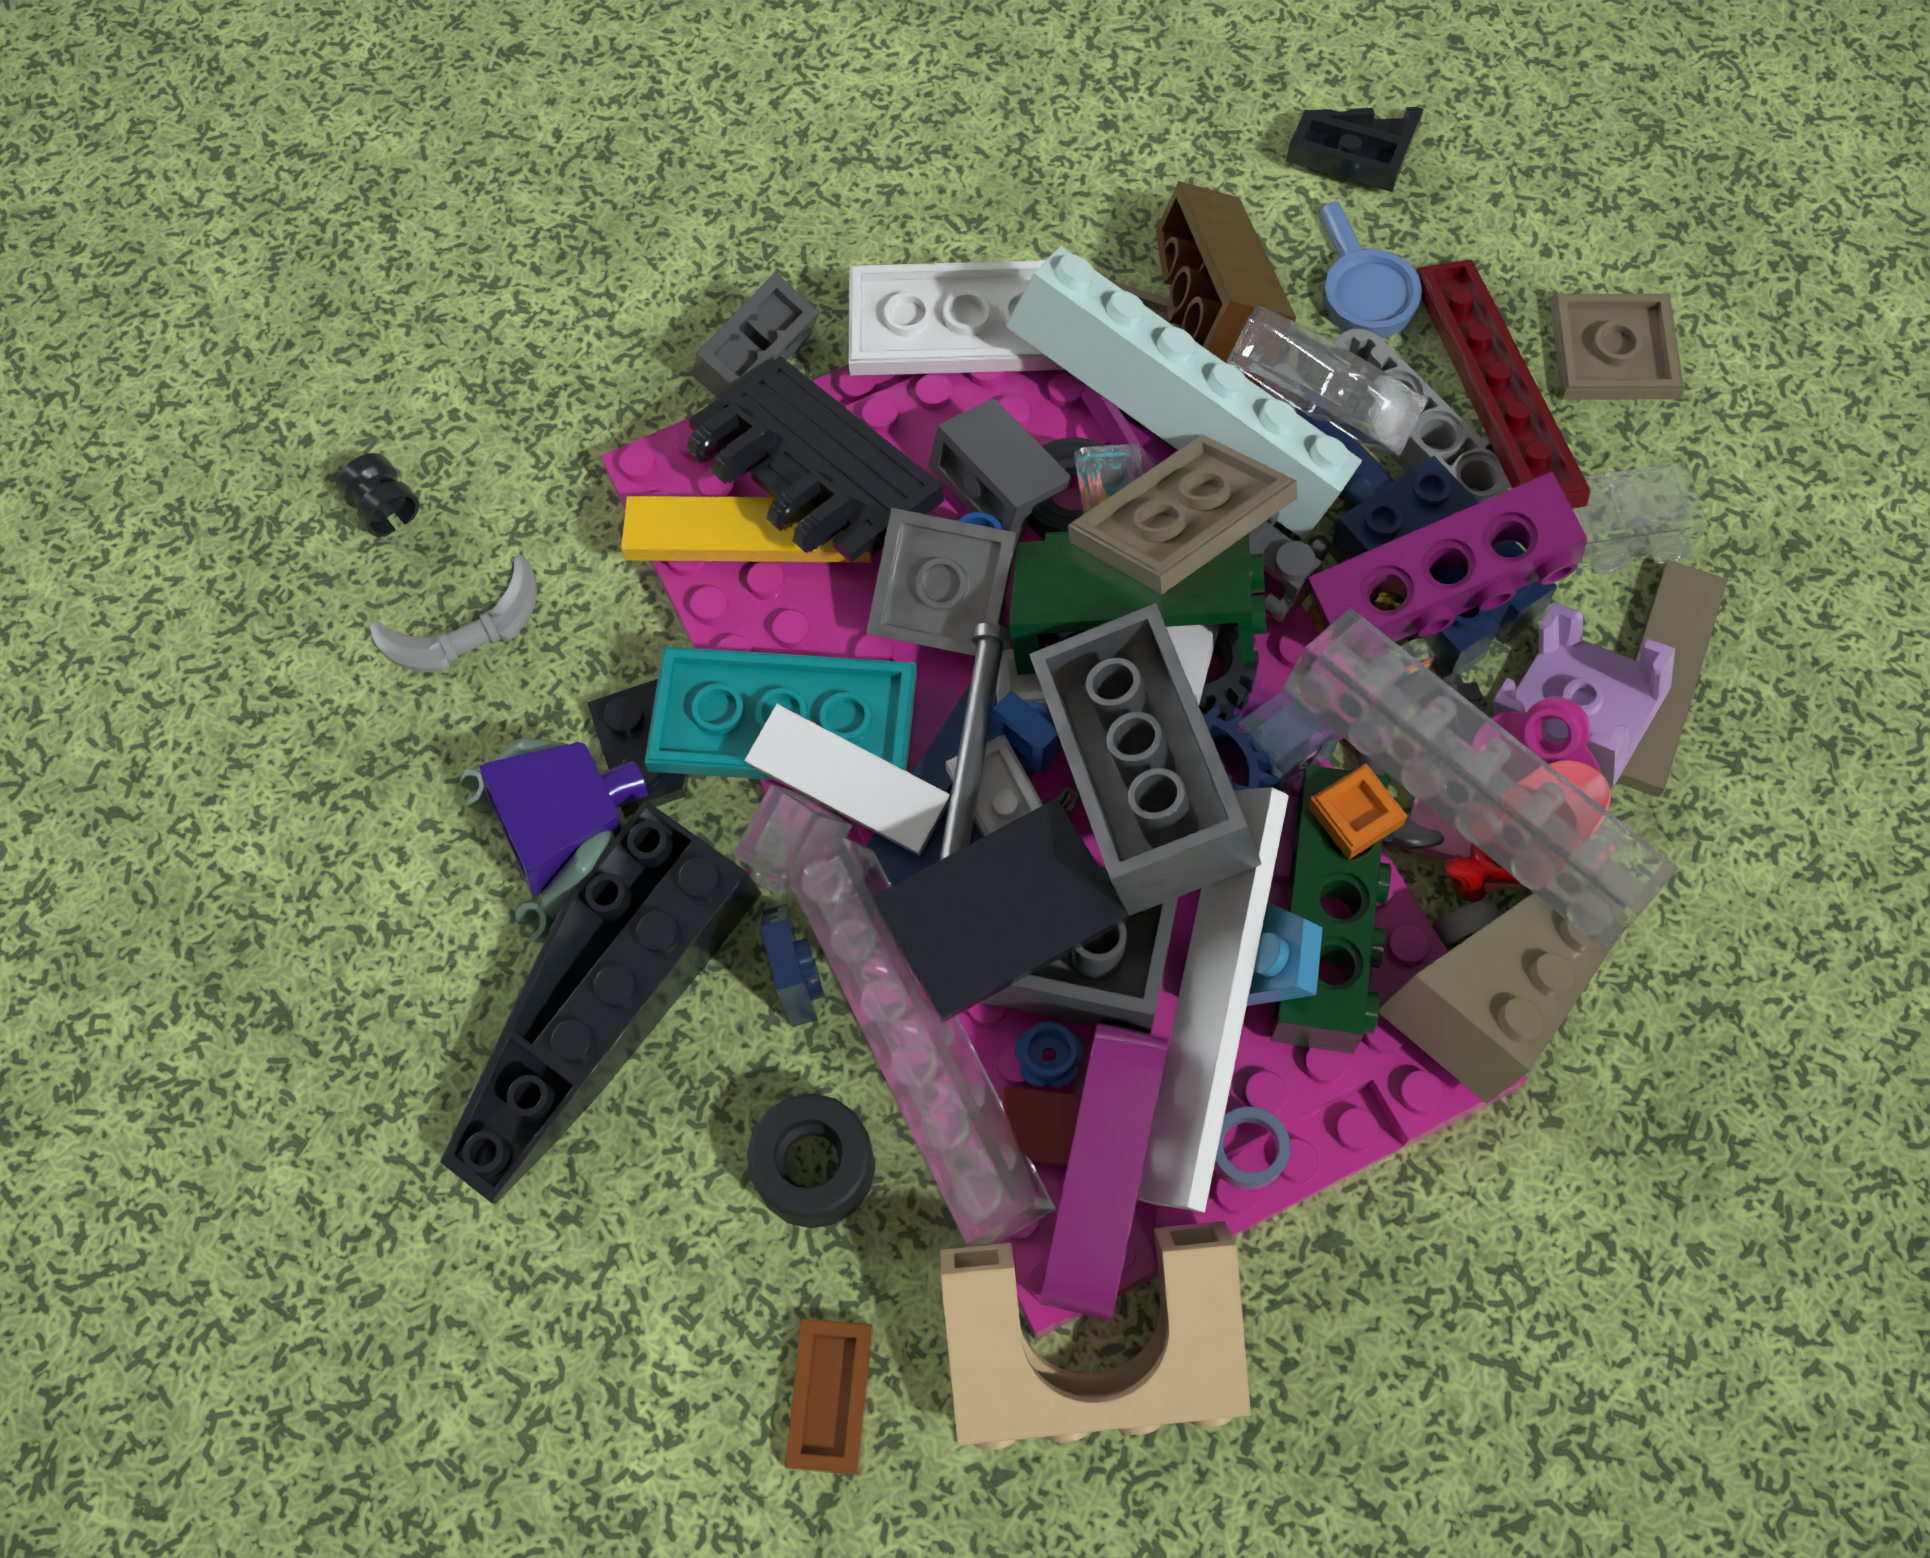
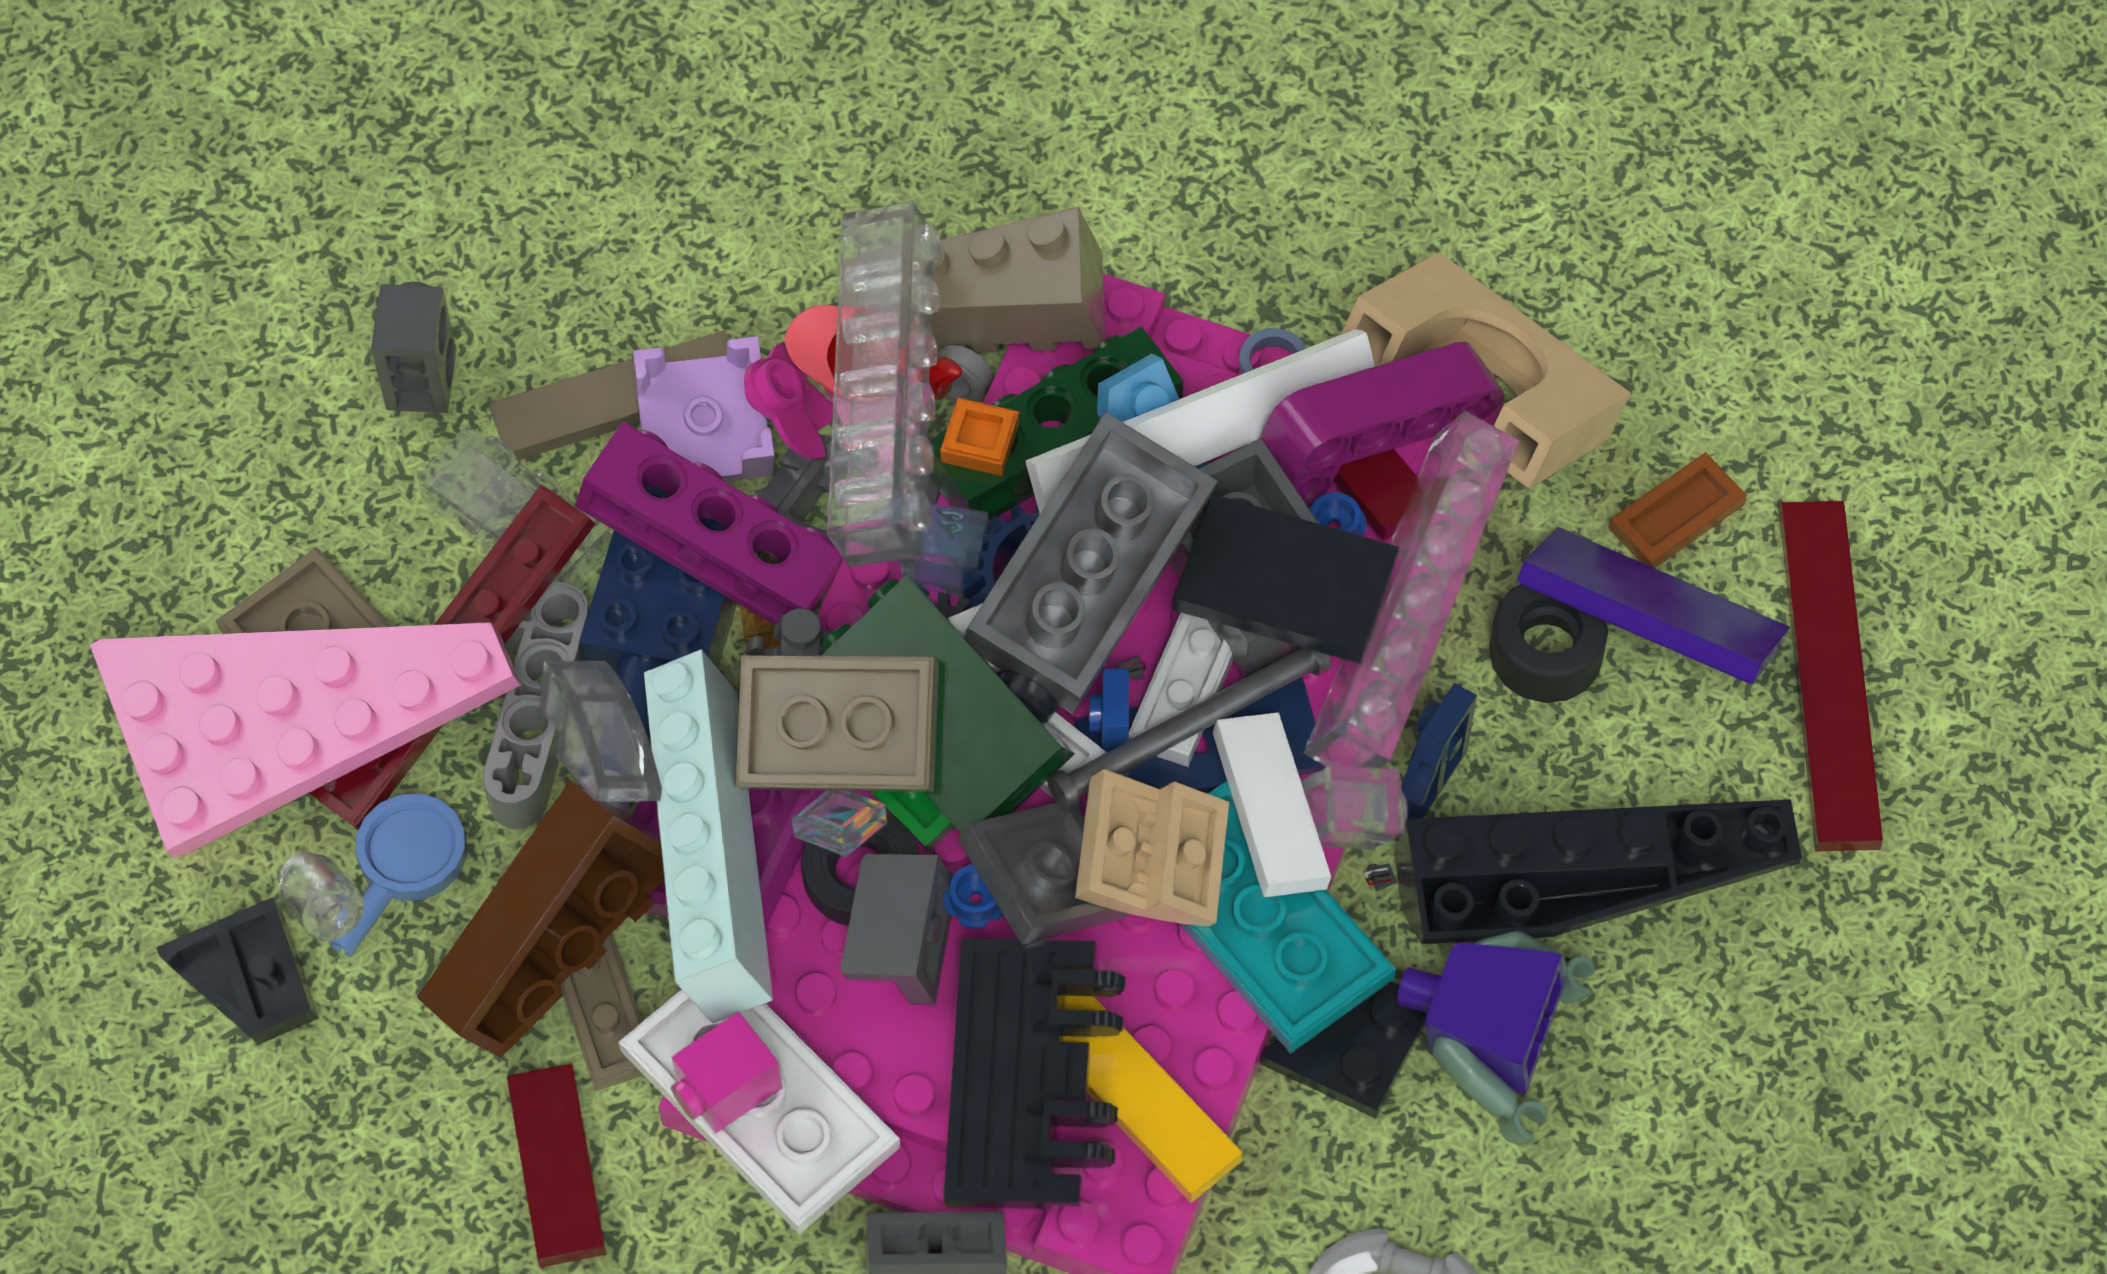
camera: 135 degrees left, 5 degrees down
(578, 1378) = (1830, 677): none -> dark red tile
(750, 1265) = (1653, 605): none -> dark purple tile
(887, 660) = (1152, 850): none -> tan slope
(984, 274) = (725, 1073): none -> dark pink brick
(1053, 219) = (556, 1165): none -> dark red tile
(1374, 202) = (320, 896): none -> clear brick
(1544, 262) = (265, 717): none -> bright pink wing
(1819, 535) = (414, 347): none -> dark grey brick

